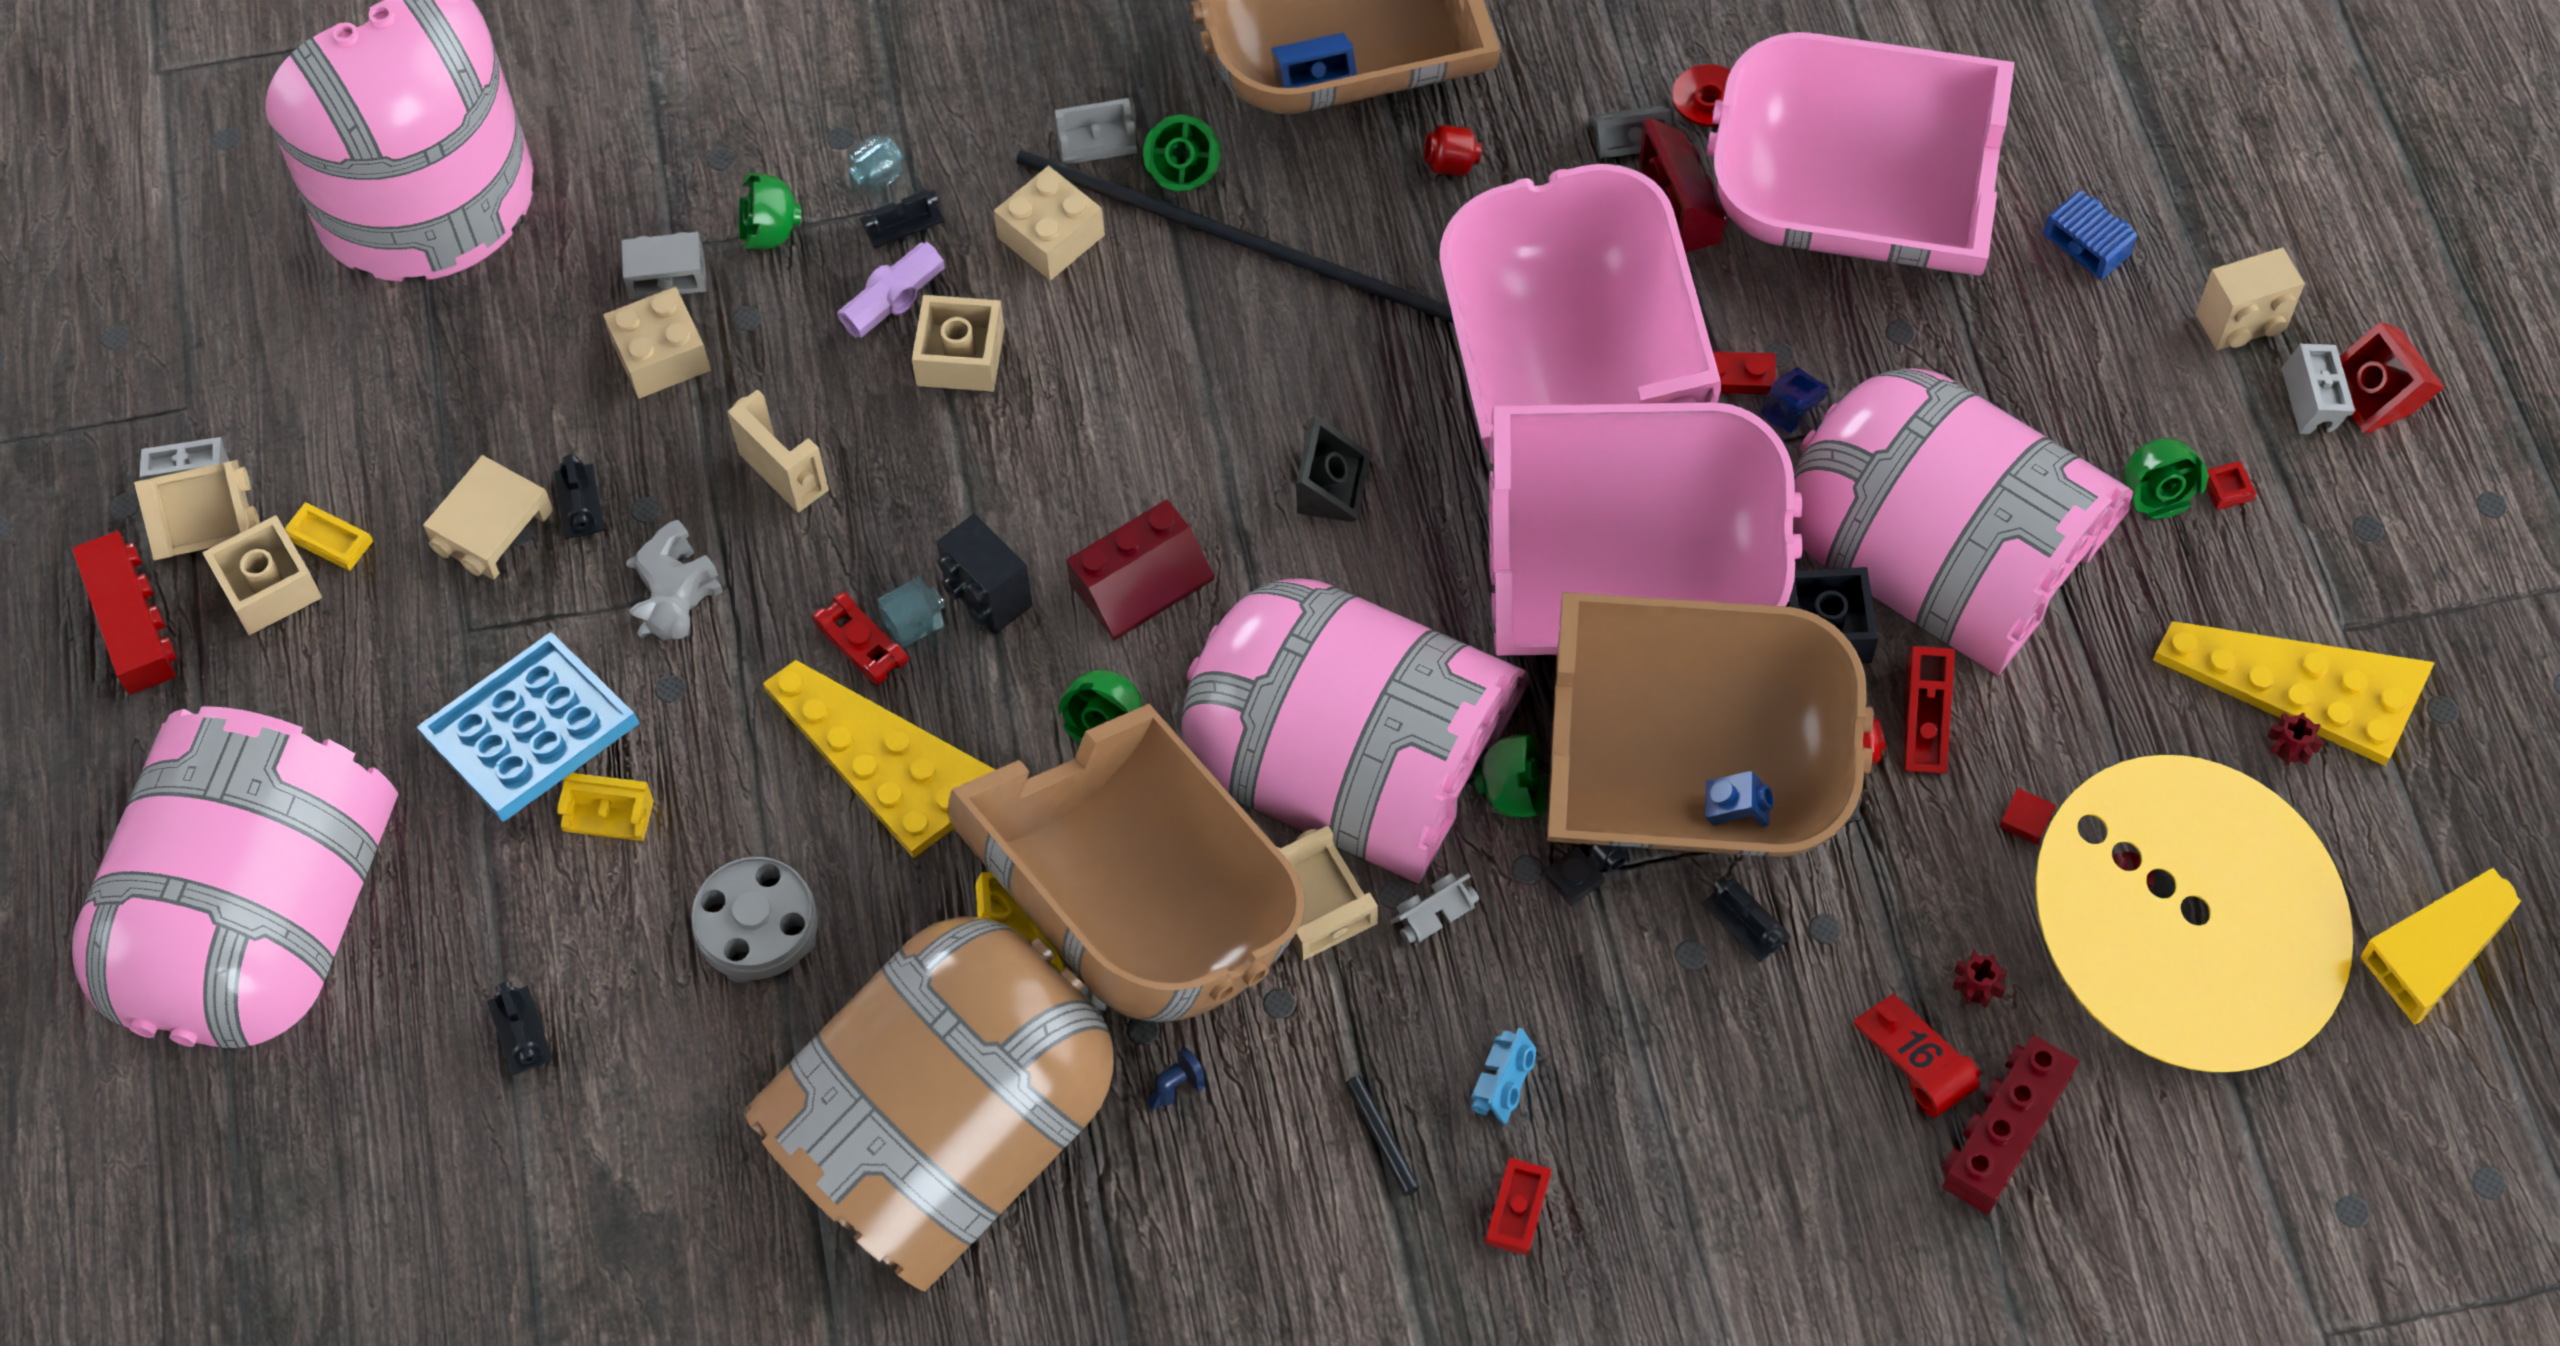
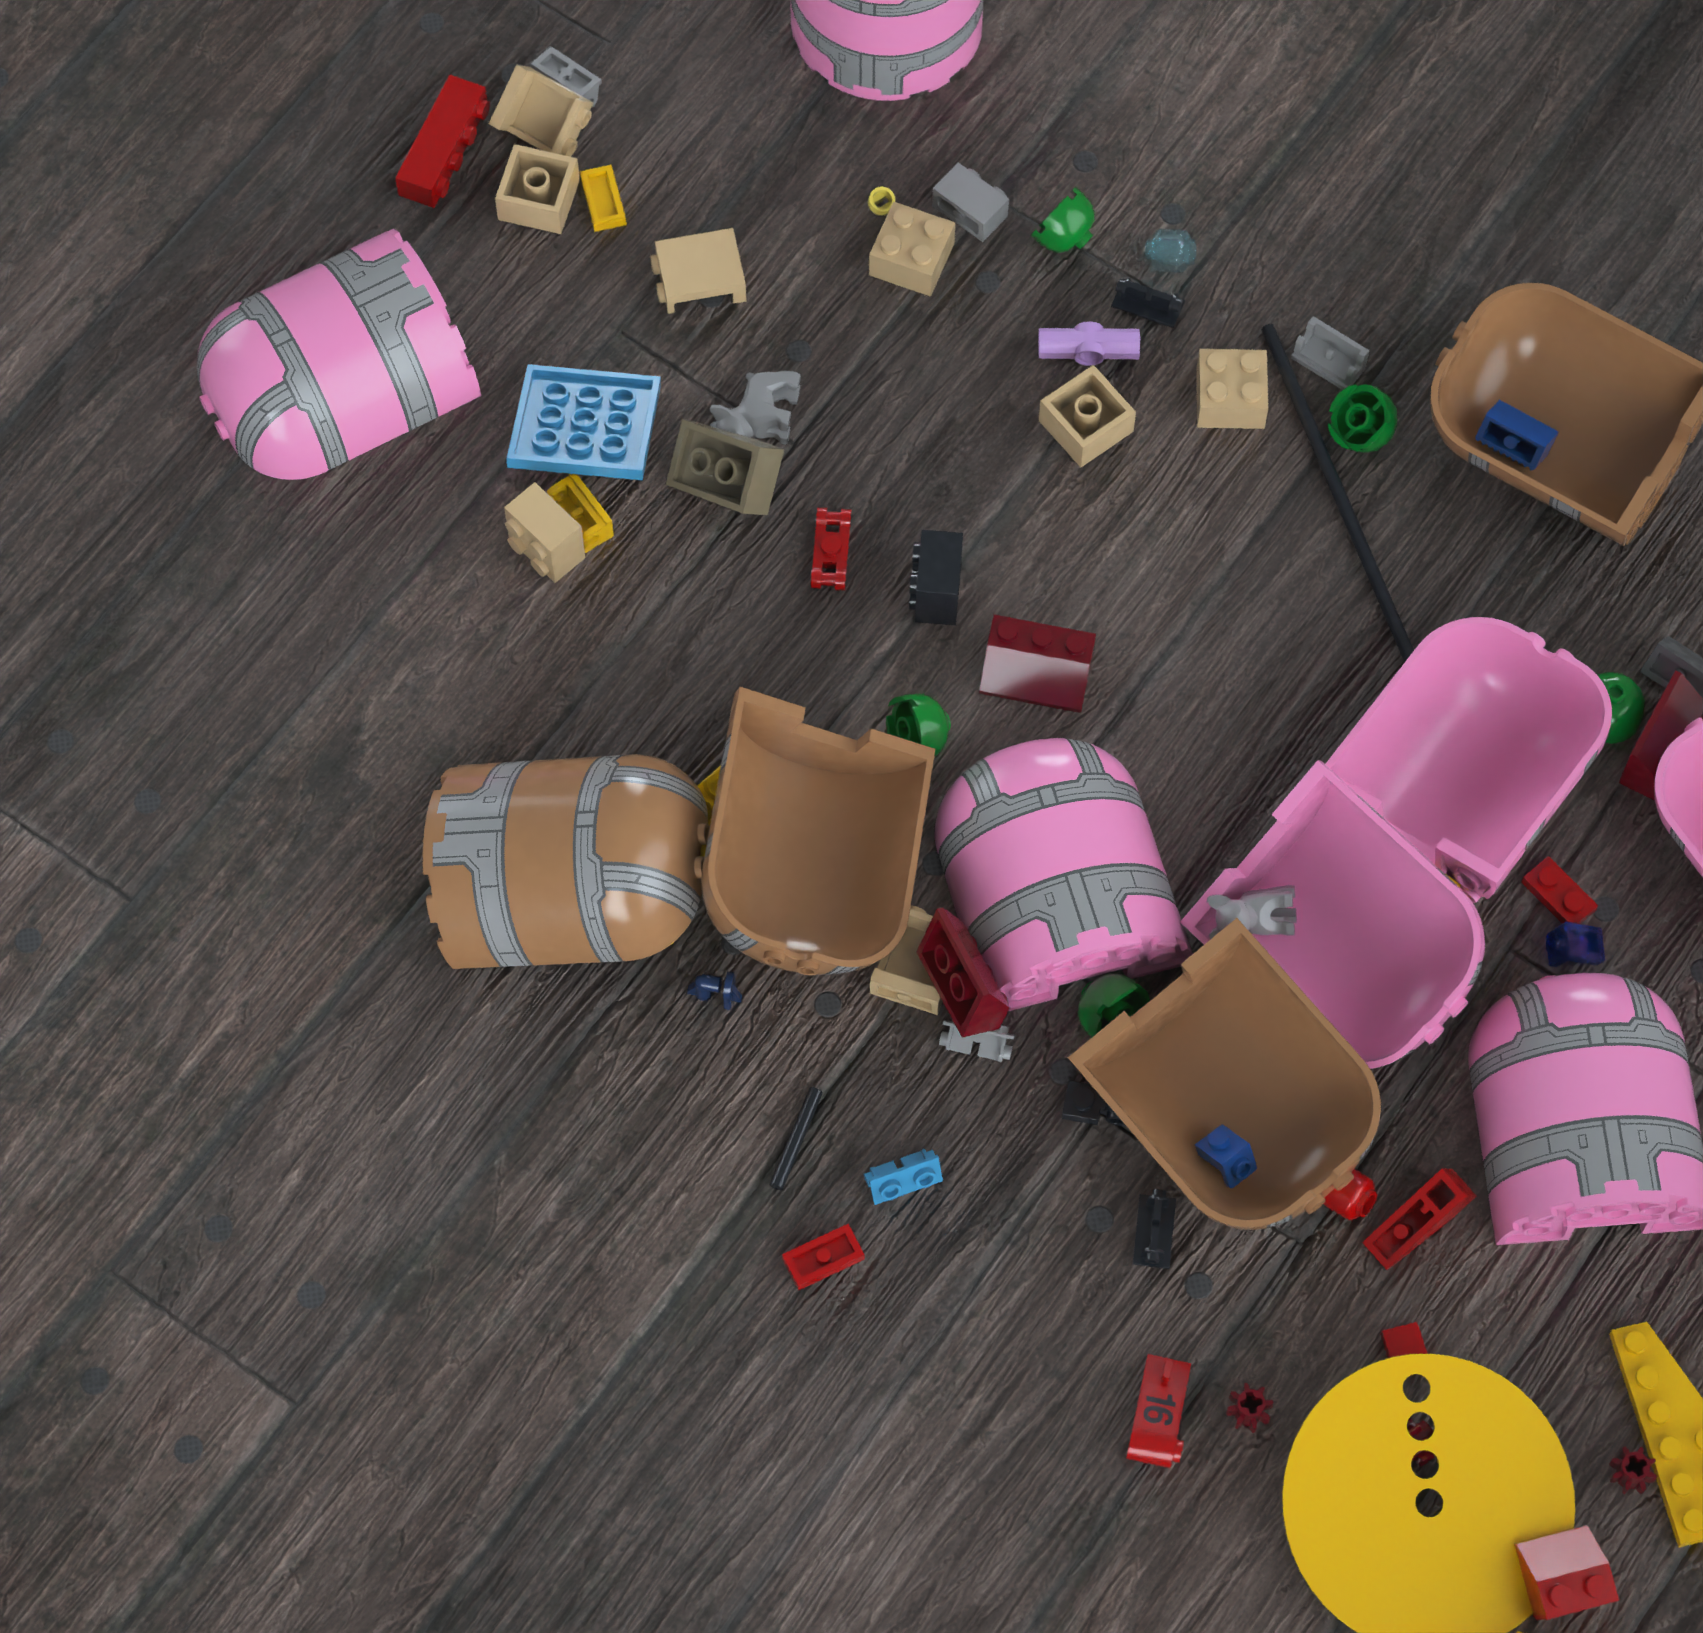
camera: 45 degrees right, 5 degrees up
(519, 1028) = (399, 599): black hinge -> none
(576, 328) = (878, 196): none -> light yellow hinge
(578, 498) = (765, 307): black hinge -> none
(597, 847) = (544, 533): none -> tan brick
(696, 652) = (725, 468): none -> dark tan slope
(754, 918) = (588, 660): light grey piece -> none
(794, 474) = (900, 407): tan panel -> none
(882, 757) = (766, 632): yellow wing -> none
(911, 611) = (874, 560): clear light blue brick -> none
(1331, 473) = (1221, 712): pearl dark grey slope -> none
(1378, 864) = (961, 976): none -> dark red slope
(1452, 150) = (1544, 576): red head -> none
(1542, 587) = (1258, 910): none -> light grey animal
(1843, 600) = (1423, 1100): black brick -> none
(2009, 1124) = (1163, 1506): dark red brick -> none
(2348, 862) = (1565, 1573): none -> red slope

